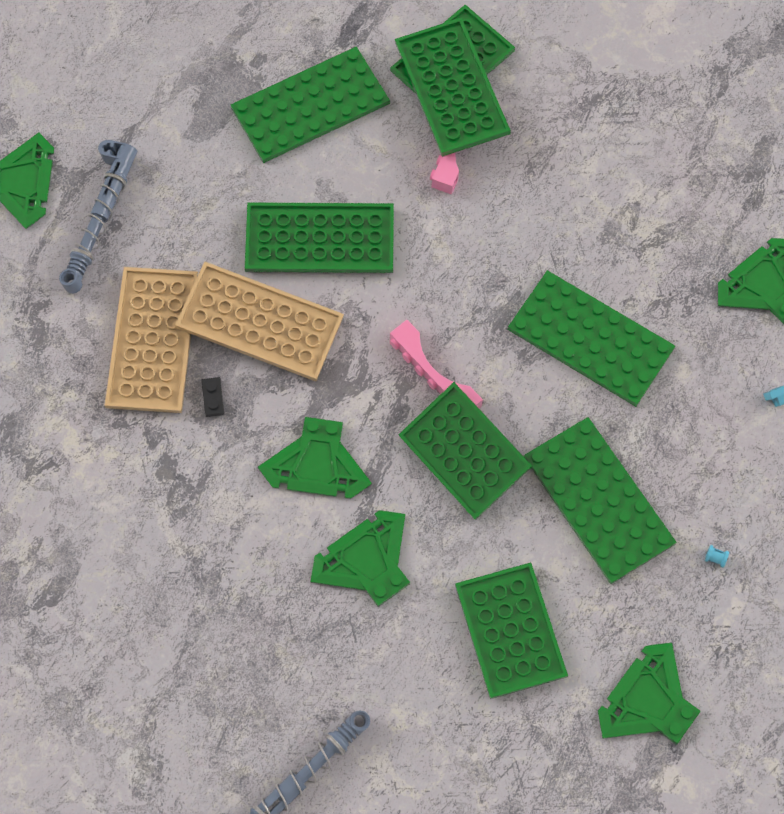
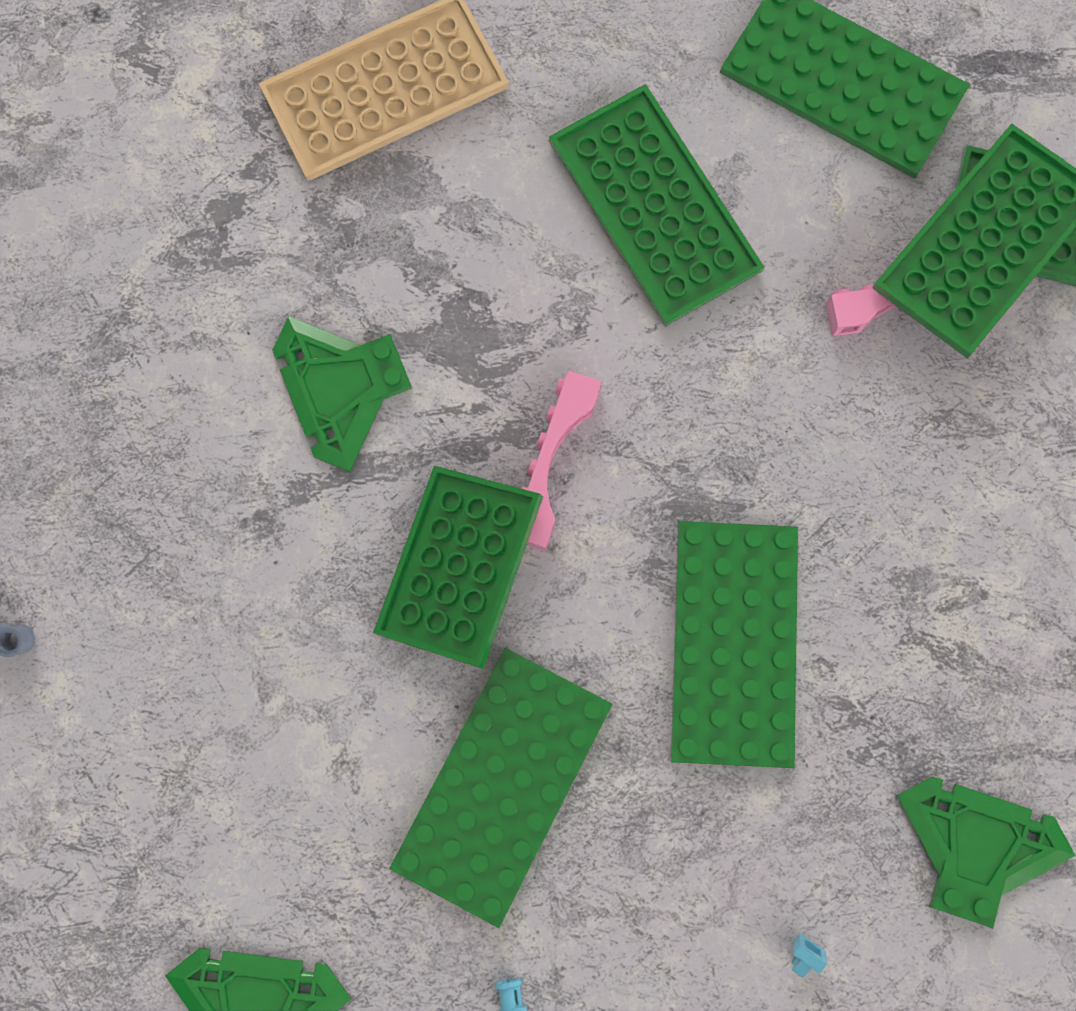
camera: 60 degrees right, 10 degrees up
(212, 397) = (351, 205): black plate -> none
(259, 321) = (486, 199): tan plate -> none
(366, 559) = (243, 524): green plate -> none
(511, 630) = (245, 769): green plate -> none

